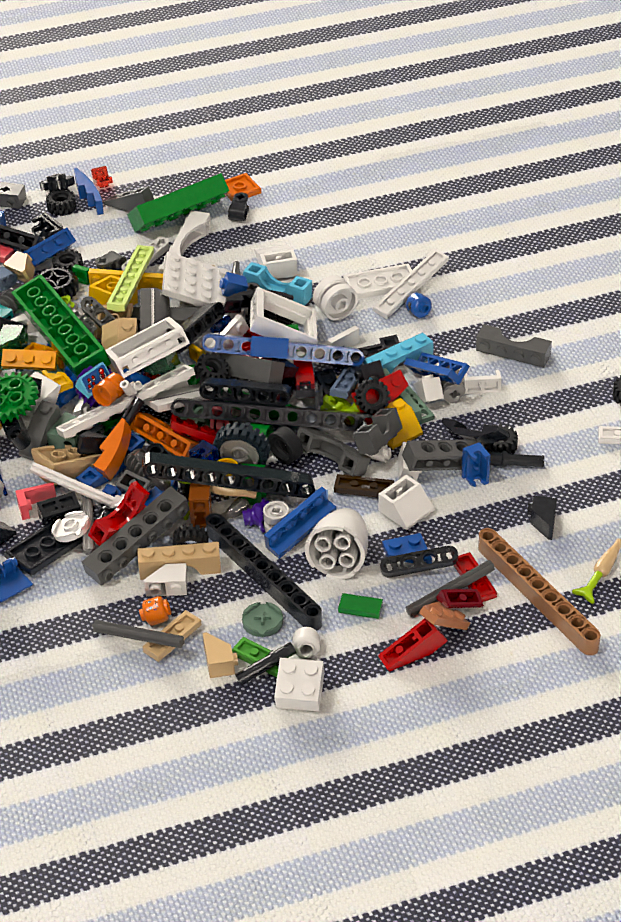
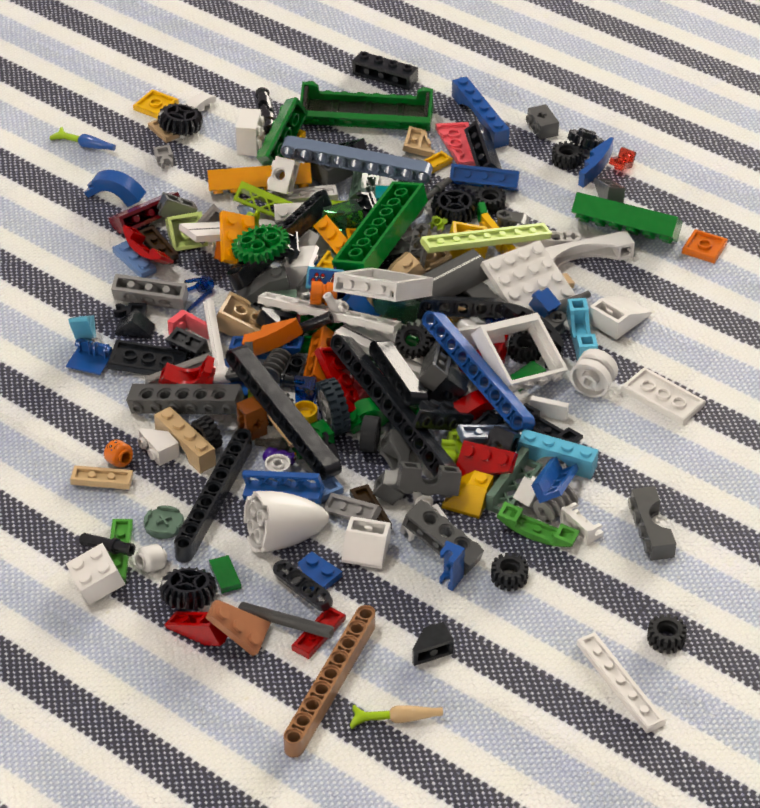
camera: 55 degrees right, 0 degrees up
(21, 265) = (440, 173): tan slope -> none
(47, 226) = (525, 165): black hinge -> none
(71, 527) = (168, 355): white tile -> none
(138, 633) = (83, 455): dark grey axle -> none
(219, 656) = (96, 513): tan slope -> none
(238, 209) = (668, 259): black piece -> none
(269, 347) = (456, 357): blue hinge -> none
(361, 396) = (458, 449): black tyre -> none
(361, 493) = (346, 507): none -> light grey plate
(366, 632) = (188, 588): none -> black gear
(410, 284) = (674, 414): white tile -> none
(418, 305) = (647, 433): blue head -> none
(460, 598) = (274, 631): dark red slope -> none
(469, 407) = (536, 530): none -> bright green slope
(488, 435) = (491, 539): black slope -> none
(503, 459) = (487, 585): black pin -> none

